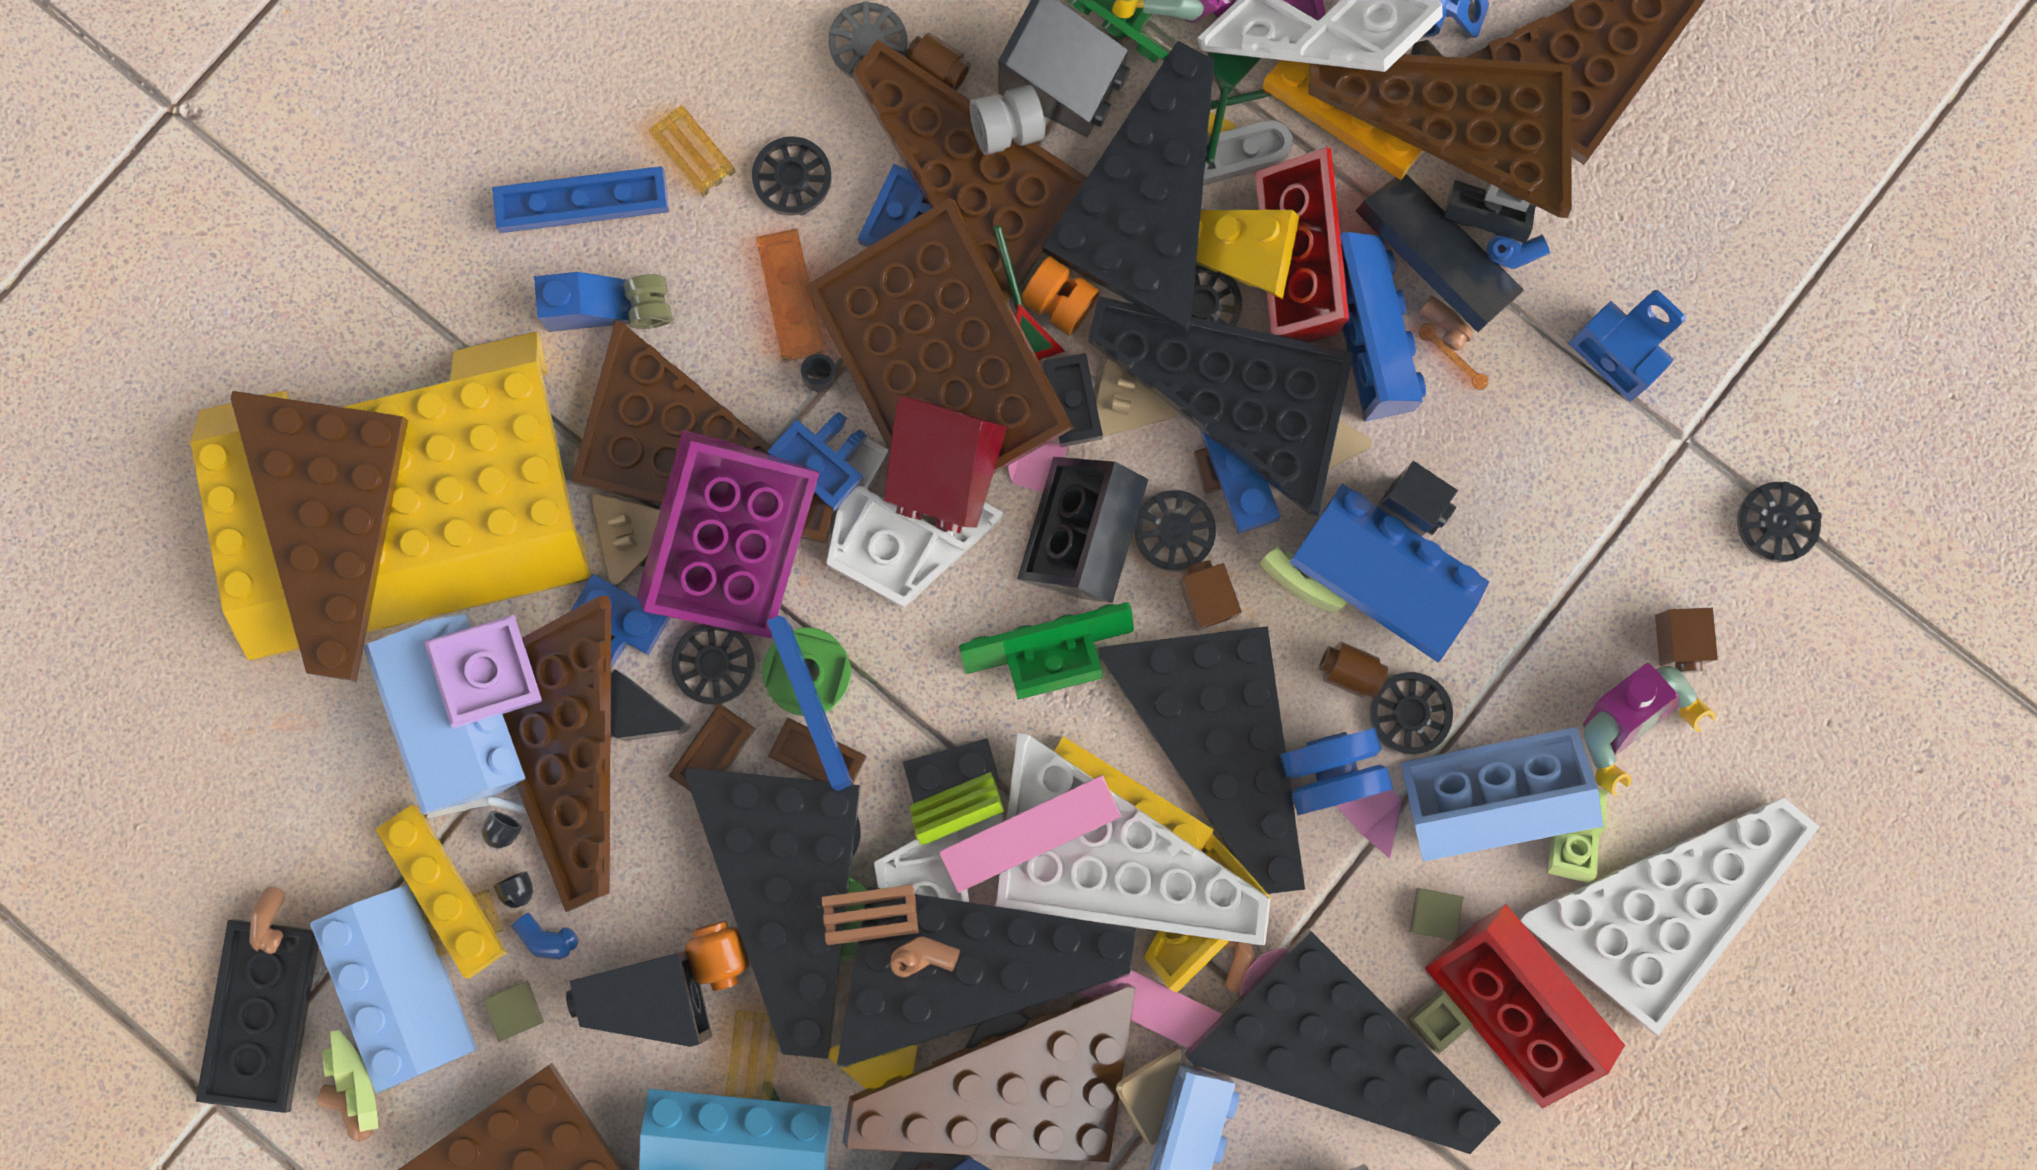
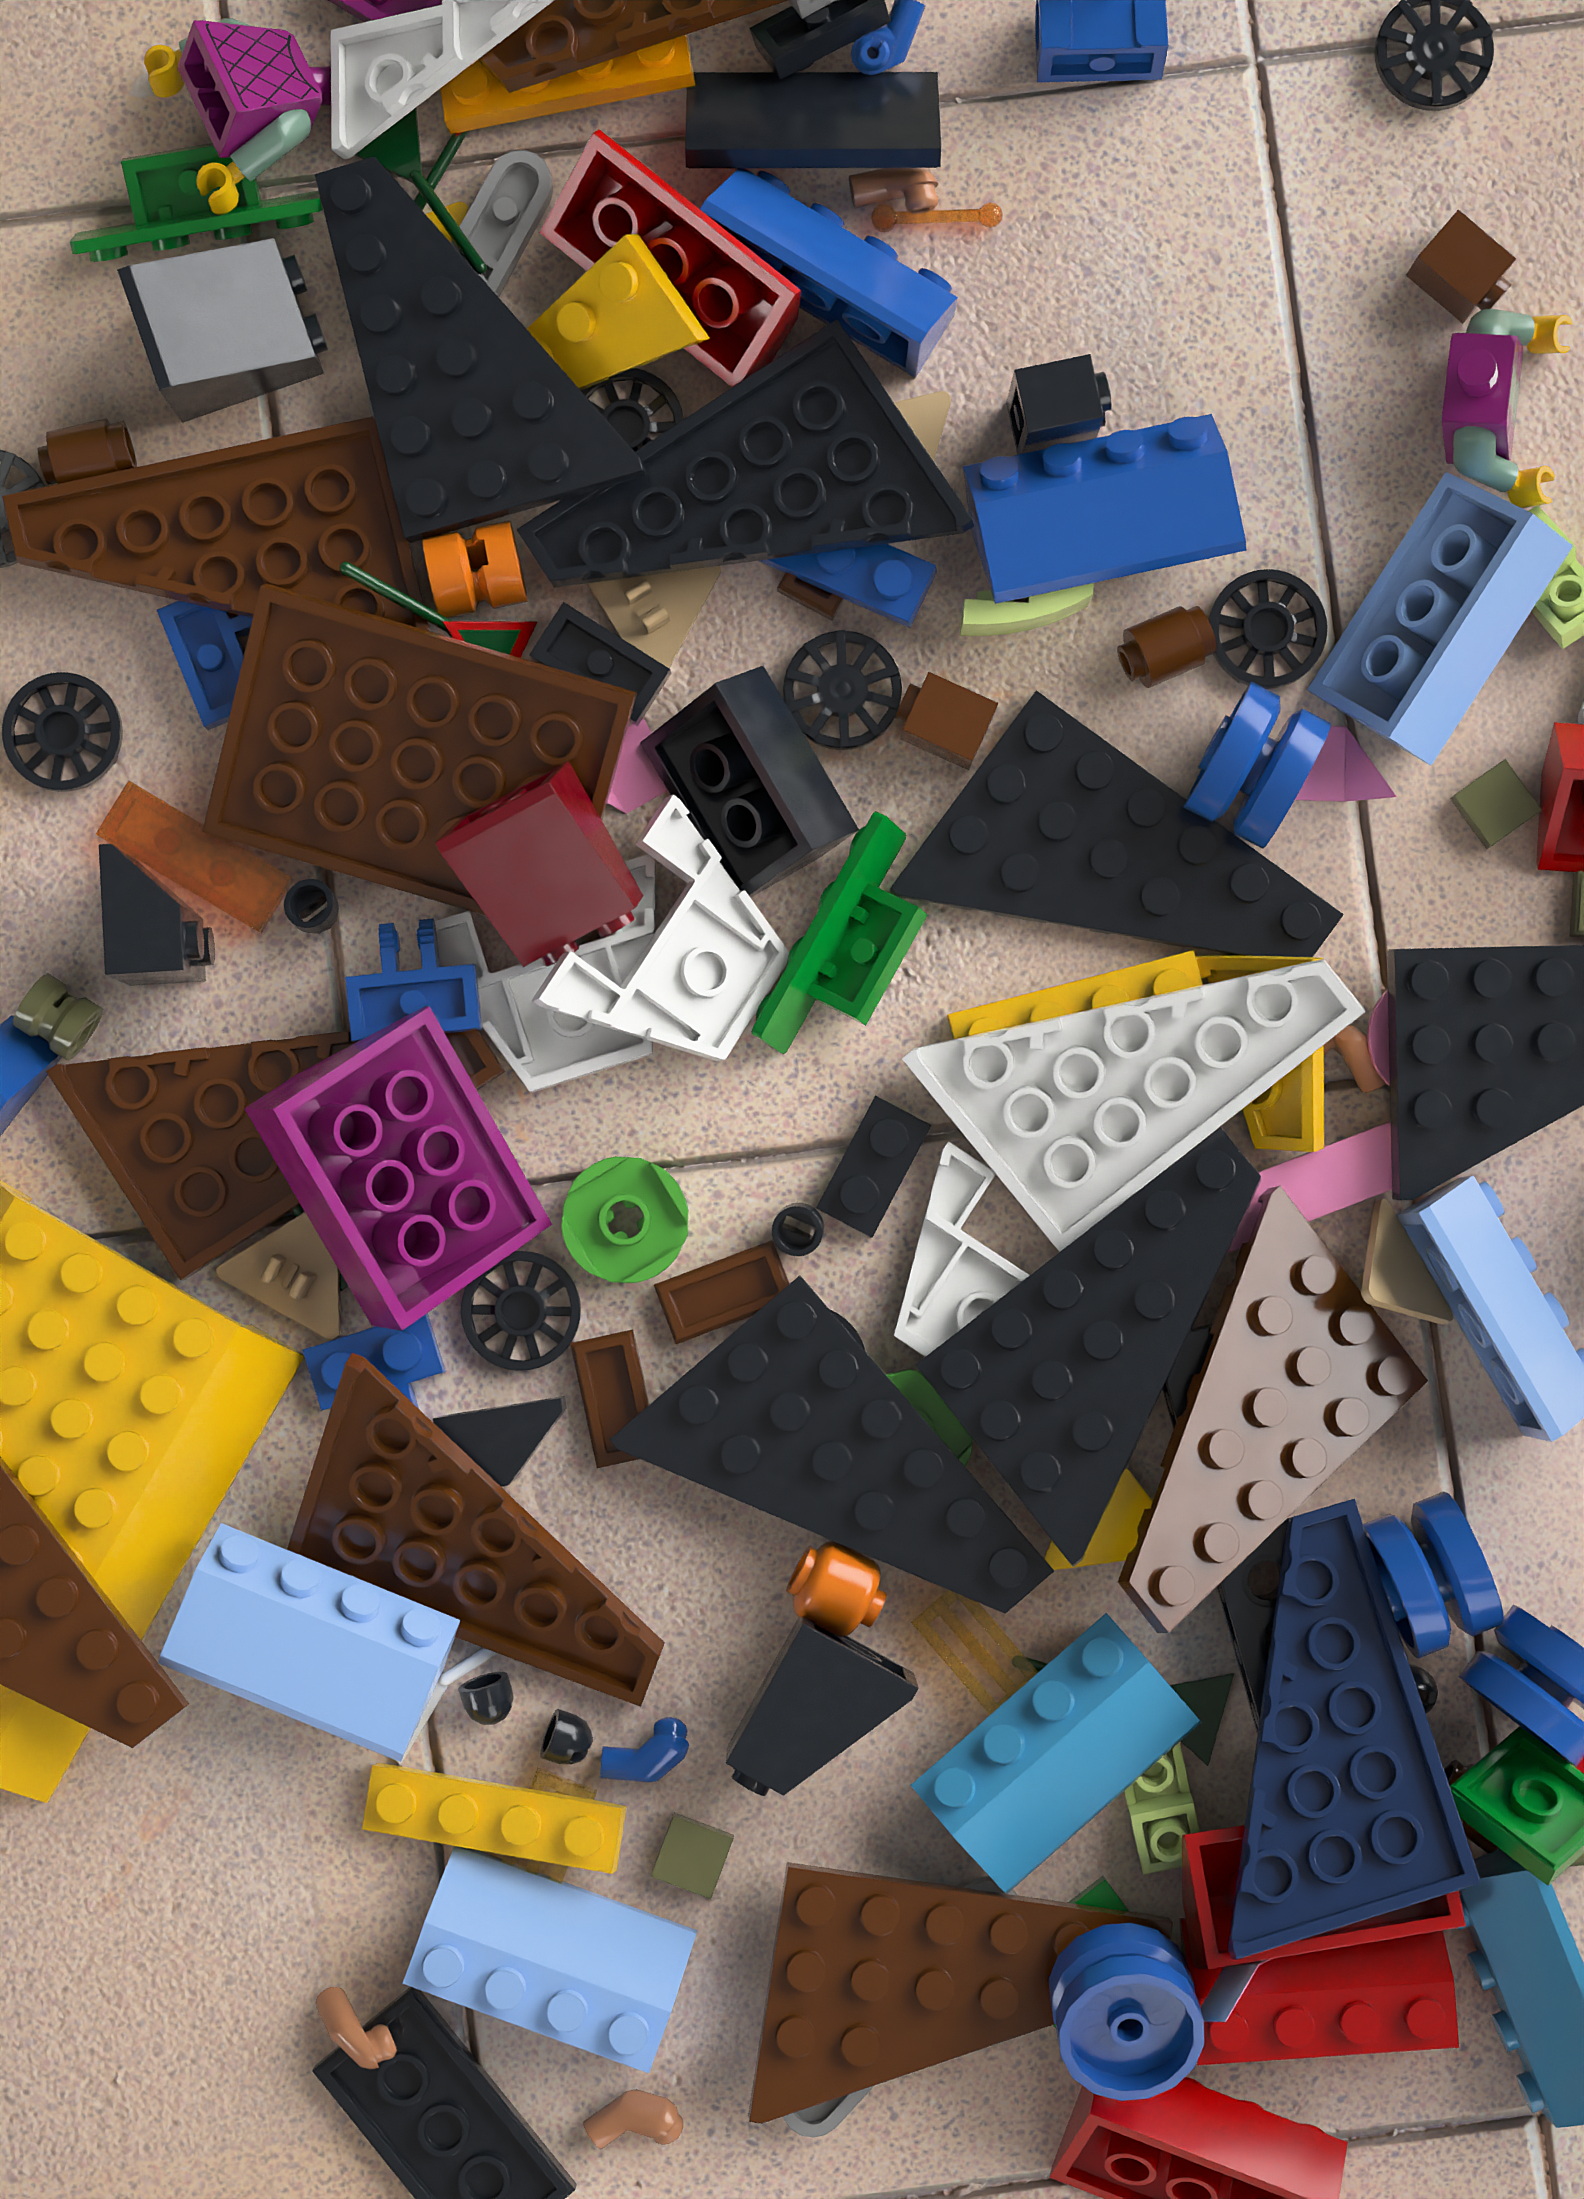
camera: 45 degrees left, 5 degrees up
(351, 1076) = (603, 2082): yellowish green slope -> none
(482, 671) = (307, 1559): lavender tile -> none
(732, 300) = (147, 927): none -> black slope
(810, 703) = (665, 1245): blue tile -> none
(867, 897) = (927, 1375): nougat tile -> none
(876, 766) = (794, 1240): none -> black hinge
(921, 953) = (1039, 1373): nougat arm -> none
(956, 808) = (912, 1194): lime tile -> none
(967, 590) = (701, 967): none -> white wing
(1013, 118) = (233, 436): light grey wheel -> none
(1030, 834) = (1021, 1144): bright pink tile -> none

